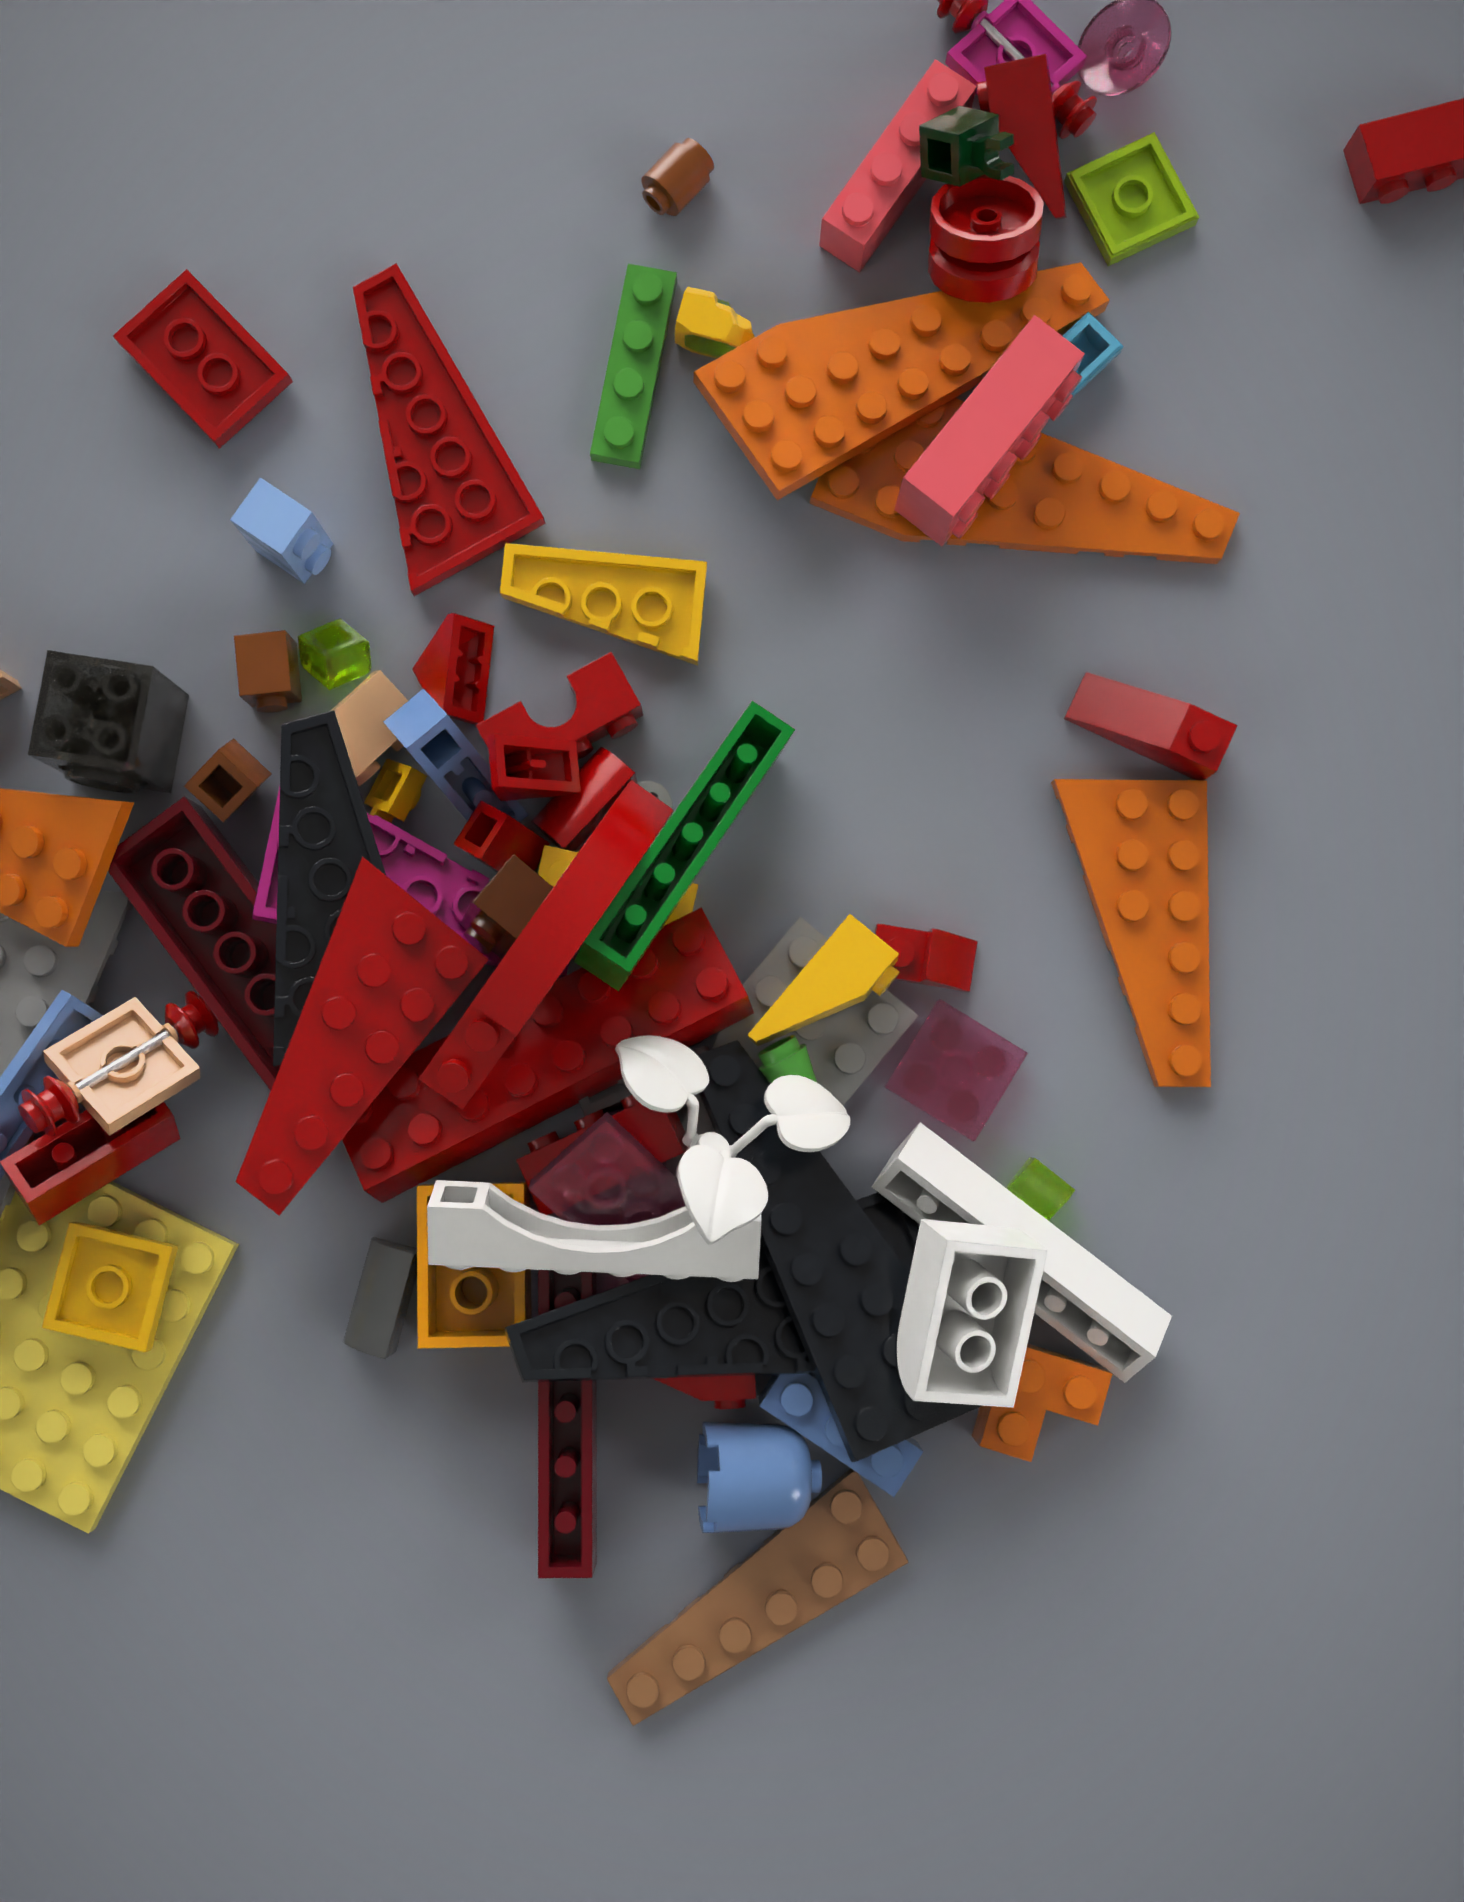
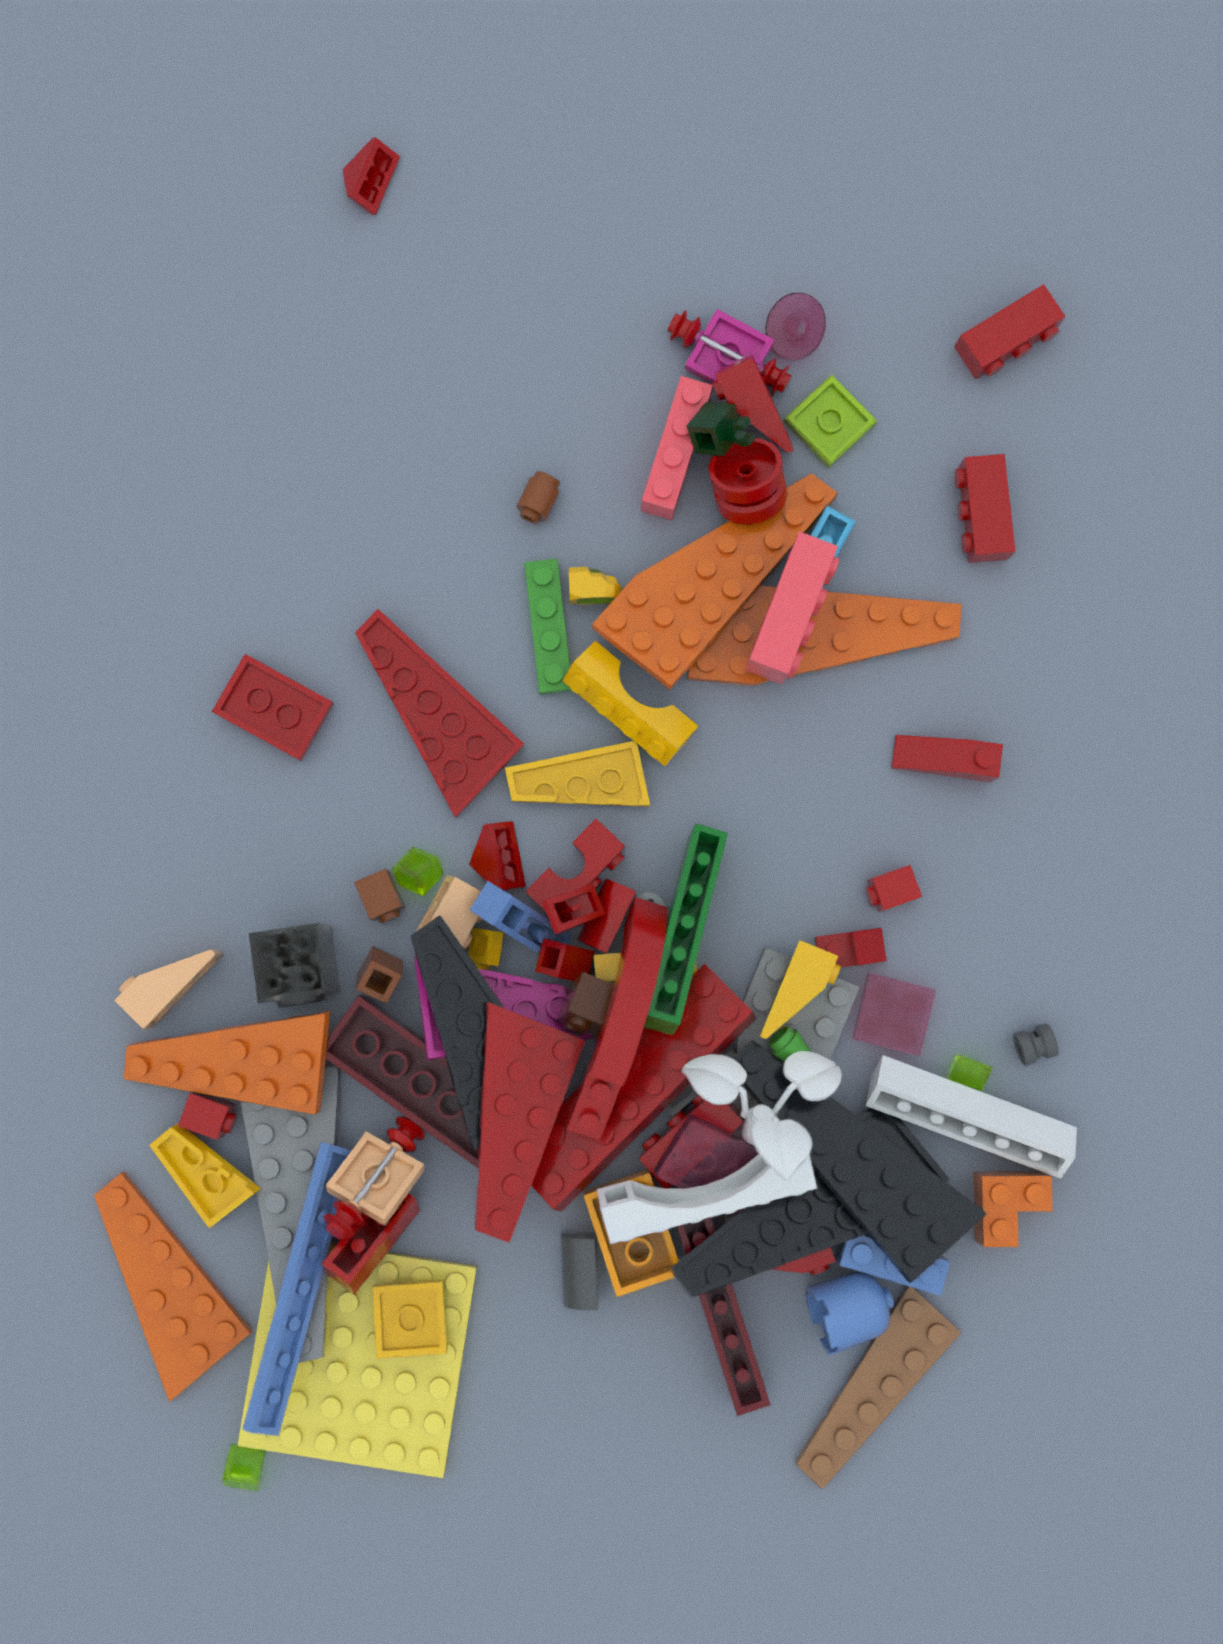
camera: 15 degrees left, 0 degrees up
(283, 531) = (364, 806): light blue brick -> none
(742, 555) = (598, 682): none -> yellow arch
(968, 1313) = (952, 1168): white brick -> none
(1011, 888) = (893, 888): none -> red brick
(1147, 1178) = (1035, 1044): none -> dark grey wheel
(1149, 890) = (979, 861): orange wing -> none
(1317, 386) = (985, 508): none -> red brick

